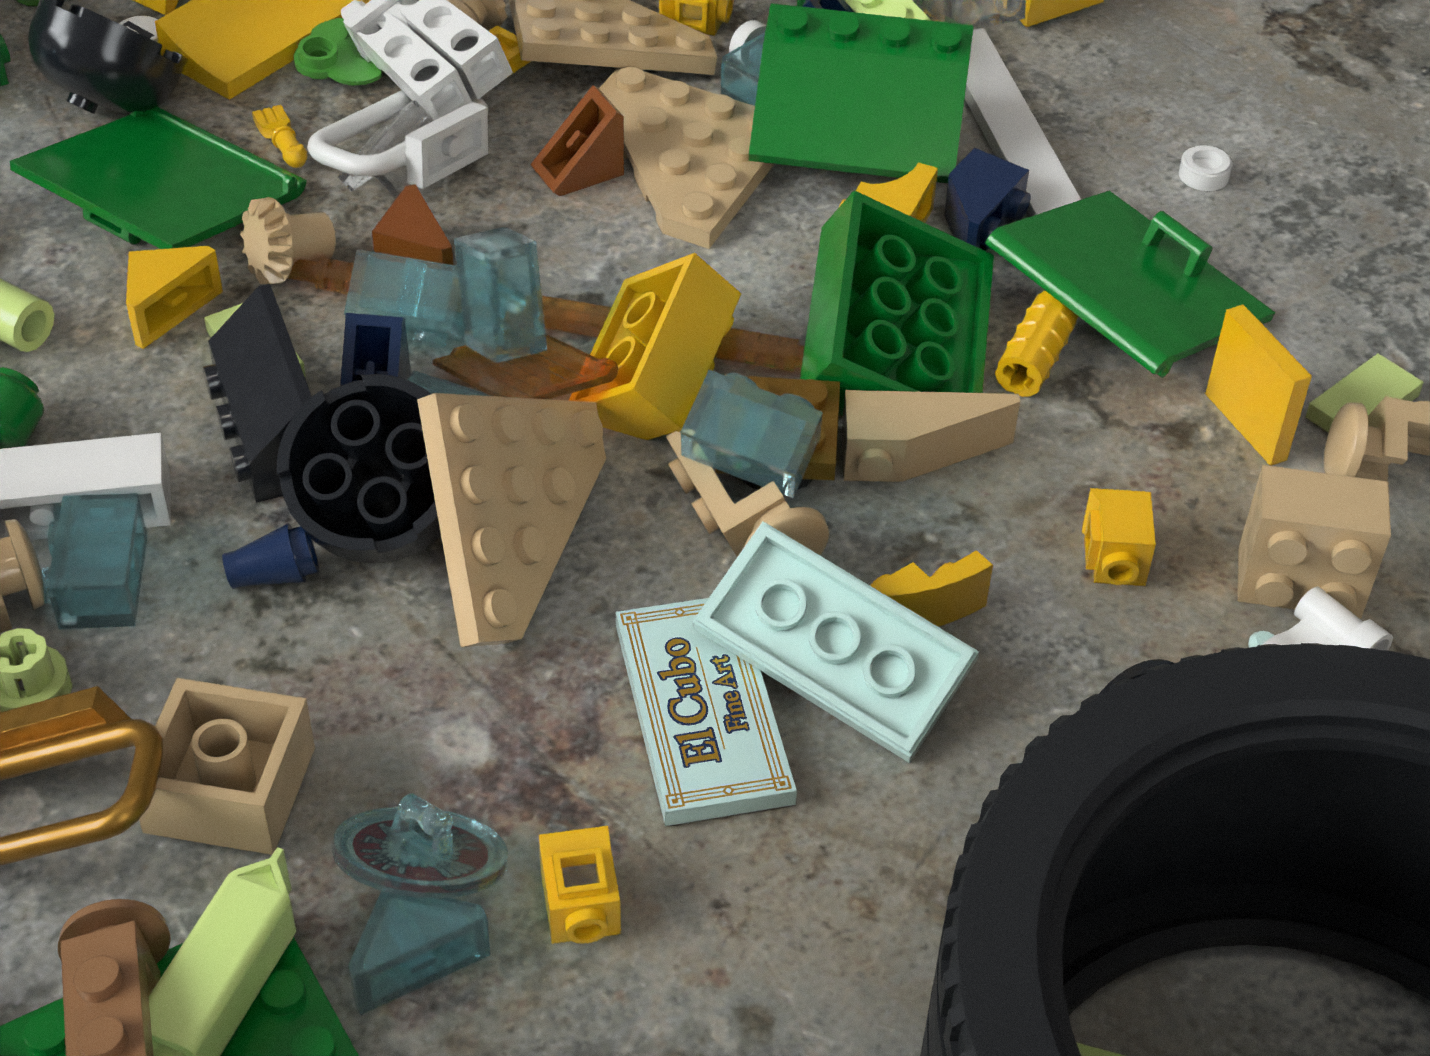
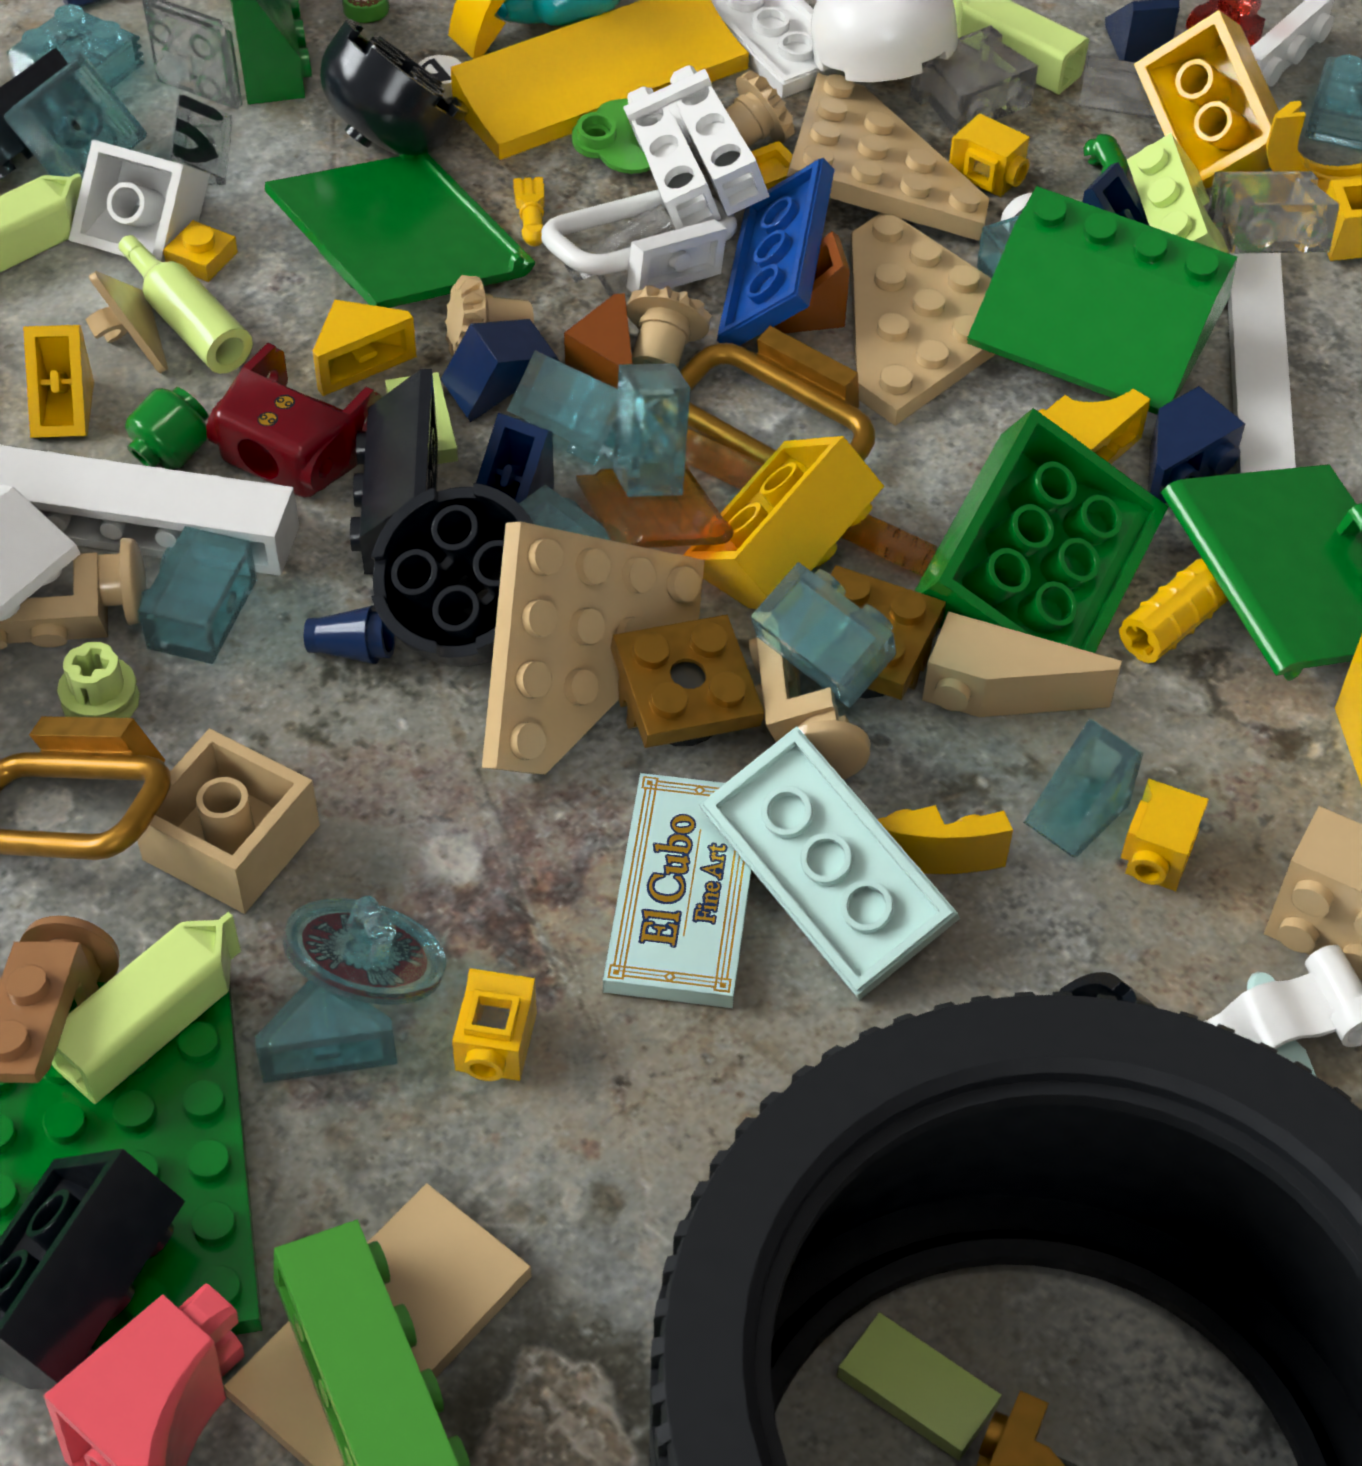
camera: 20 degrees right, 5 degrees up
(123, 385) = (283, 432): none -> dark red piece
(312, 276) = (492, 363): none -> dark blue slope
(463, 200) = (665, 324): none -> tan gear
(542, 122) = (777, 255): none -> blue tile
(604, 219) = (795, 372): none -> pearl gold bar
(627, 515) = (685, 682): none -> pearl gold piece
(1035, 513) = (1086, 789): none -> clear light blue slope

